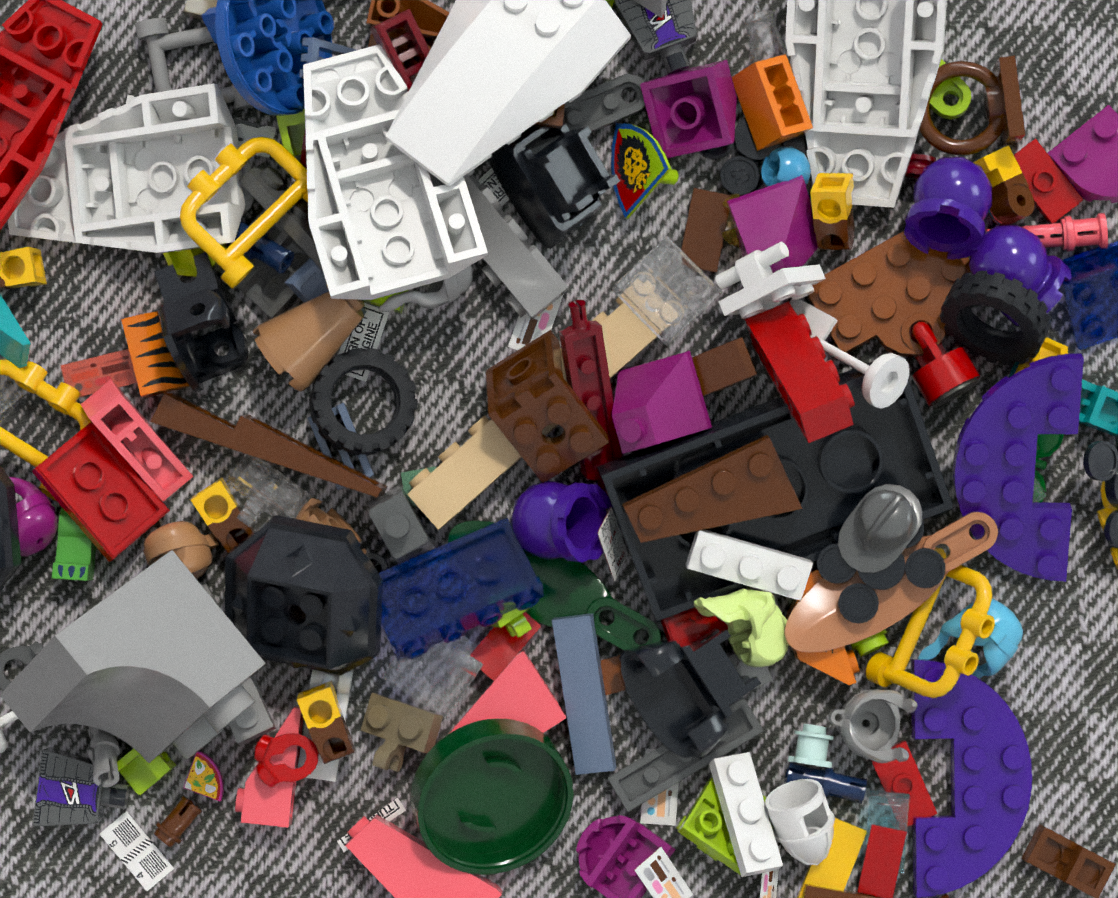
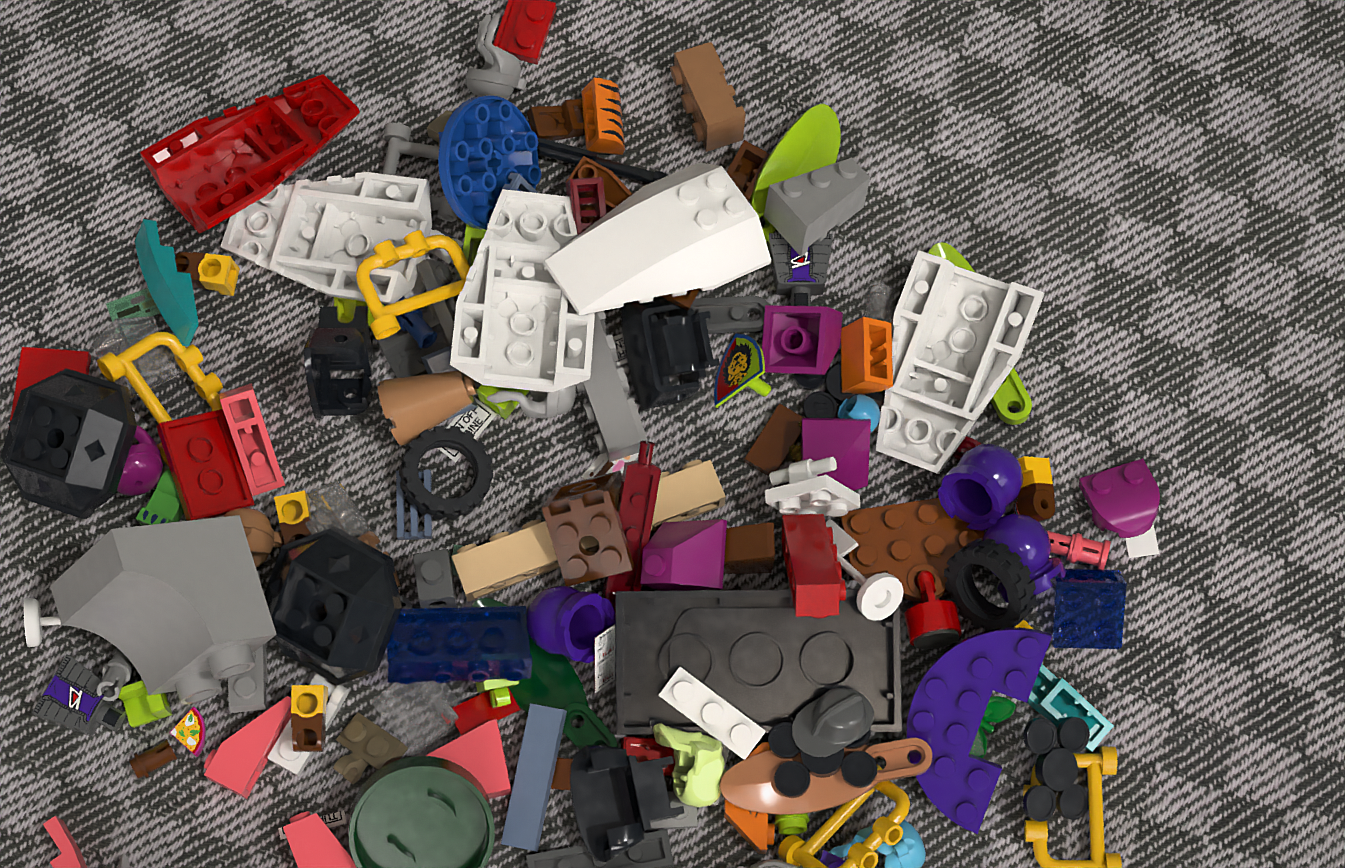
camera: 20 degrees right, 15 degrees down
(93, 373) = (235, 375): clear red sticker -> none
(136, 851) = (109, 773): white sticker -> none
(150, 356) = (289, 382): orange brick -> none
(261, 441) = (349, 472): reddish brown slope -> none
(273, 774) = (253, 718): red piece -> none
(666, 290) = (726, 471): clear plate -> none
(720, 493) = (711, 642): reddish brown wing -> none
(833, 211) = (886, 459): yellow leg -> none
(1001, 105) = (1053, 421): reddish brown tile -> none
(1048, 185) = (1071, 505): red plate -> none

